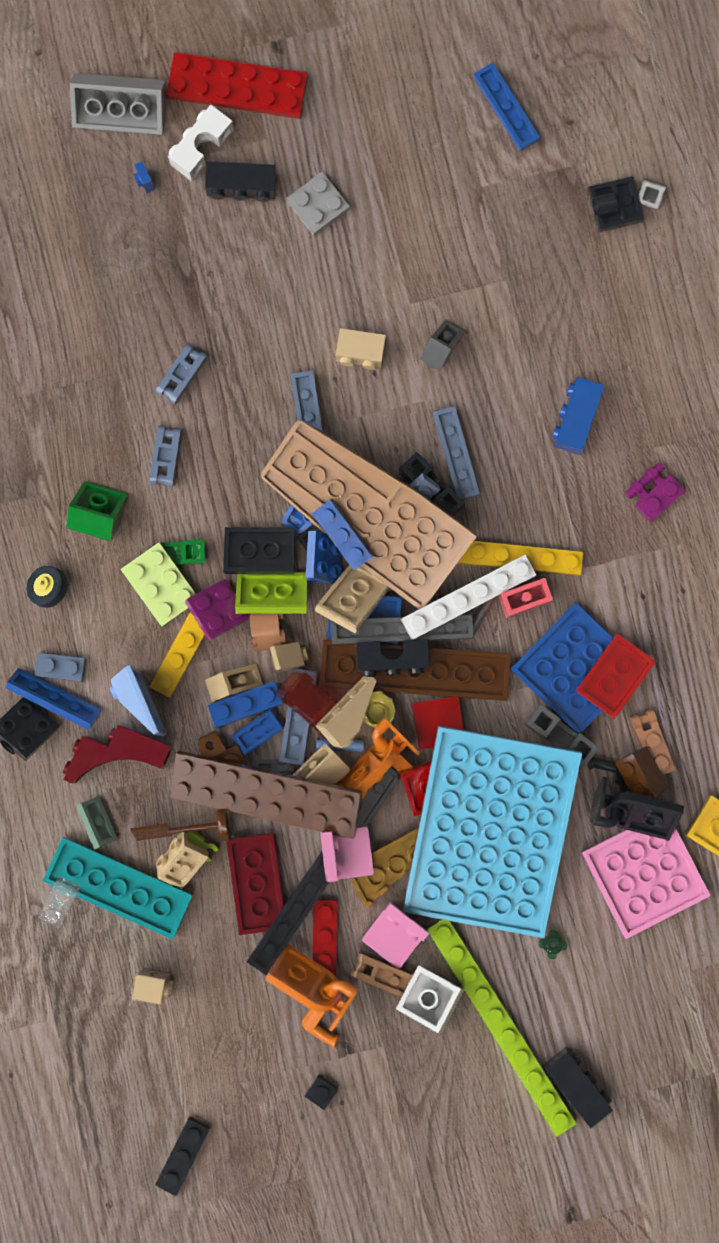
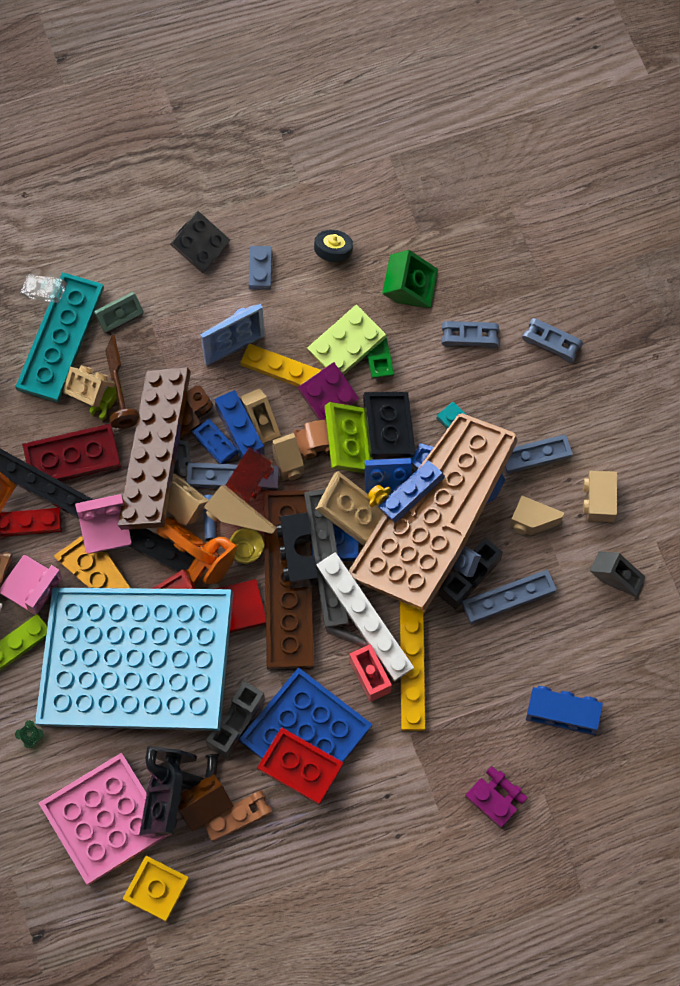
camera: 85 degrees right, 15 degrees down
(53, 698) = (229, 263): blue plate -> none
(123, 745) = (182, 302): dark red arch -> none
(255, 486) = (448, 414): none -> teal plate
(342, 568) = (378, 495): none -> yellow plate
(375, 418) = (534, 517): none -> tan slope

